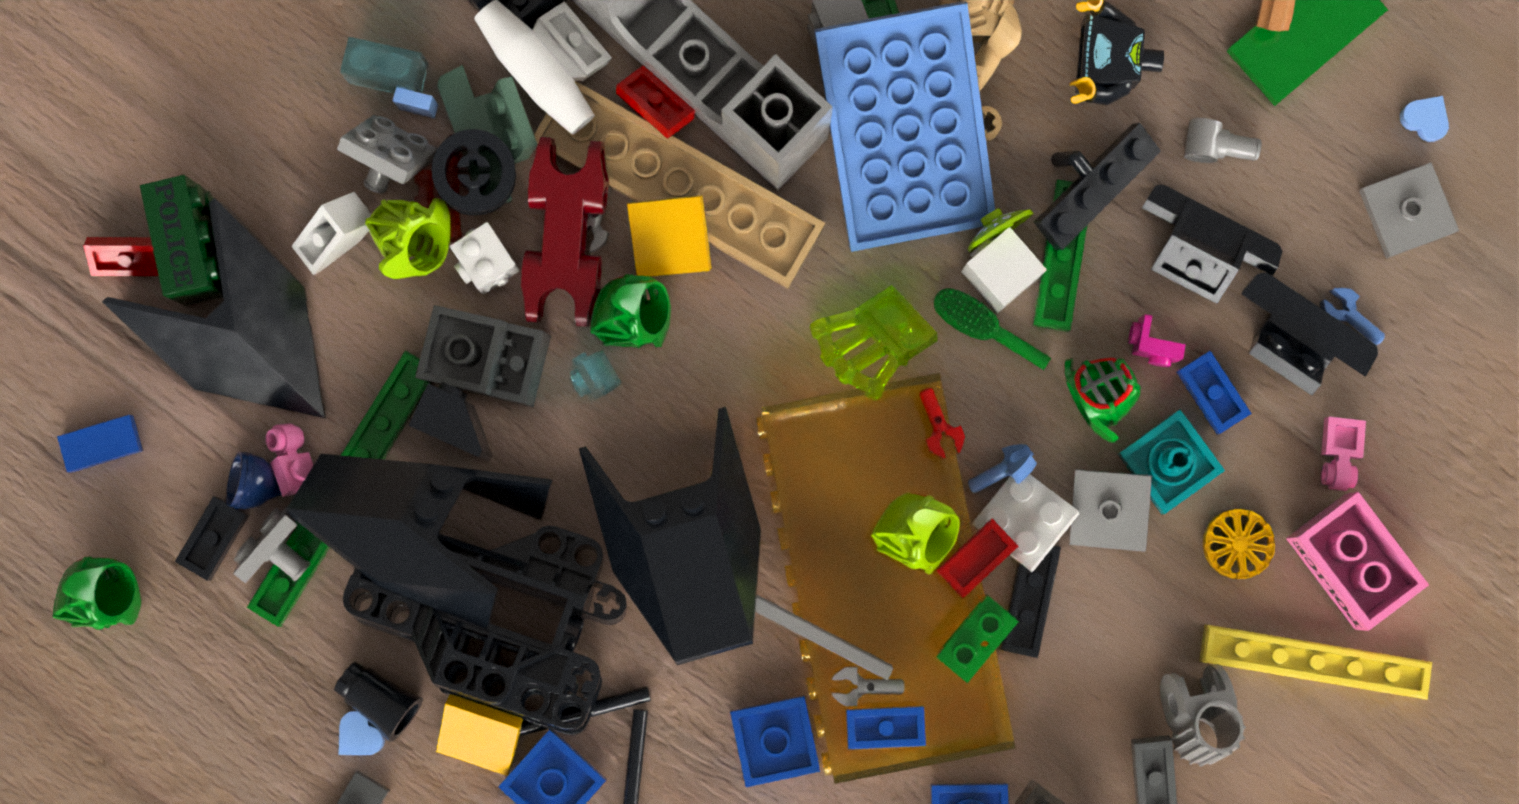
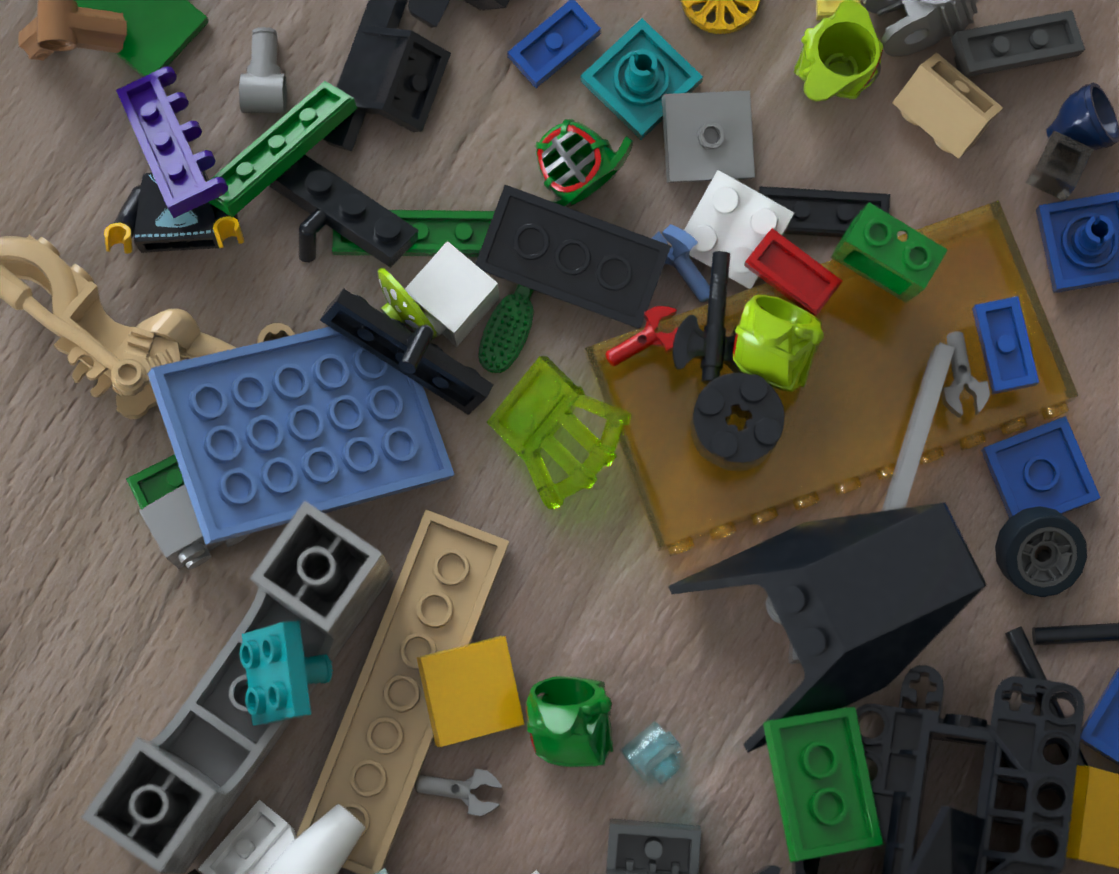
camera: 100 degrees left, 5 degrees down
(540, 503) = (822, 783): none -> green plate
(566, 207) = (449, 820): dark red piece -> none
(655, 101) = (308, 737): red plate -> none
(695, 739) = (1055, 567): none -> wheel
(701, 77) = (280, 673): none -> teal plate
(867, 468) = (748, 398): none -> black brick
(924, 479) = (711, 344): none -> black piece
(957, 225) = (407, 351): none -> black plate
(1020, 375) = (572, 256): none -> black plate
(1108, 720) = (946, 105): none -> tan brick
(1150, 143) = (282, 146): none -> green tile
(1158, 351) = (518, 107): dark pink bracket -> none
(1165, 633) = (840, 54): none -> lime piece
(1167, 50) = (166, 142): none -> hinge

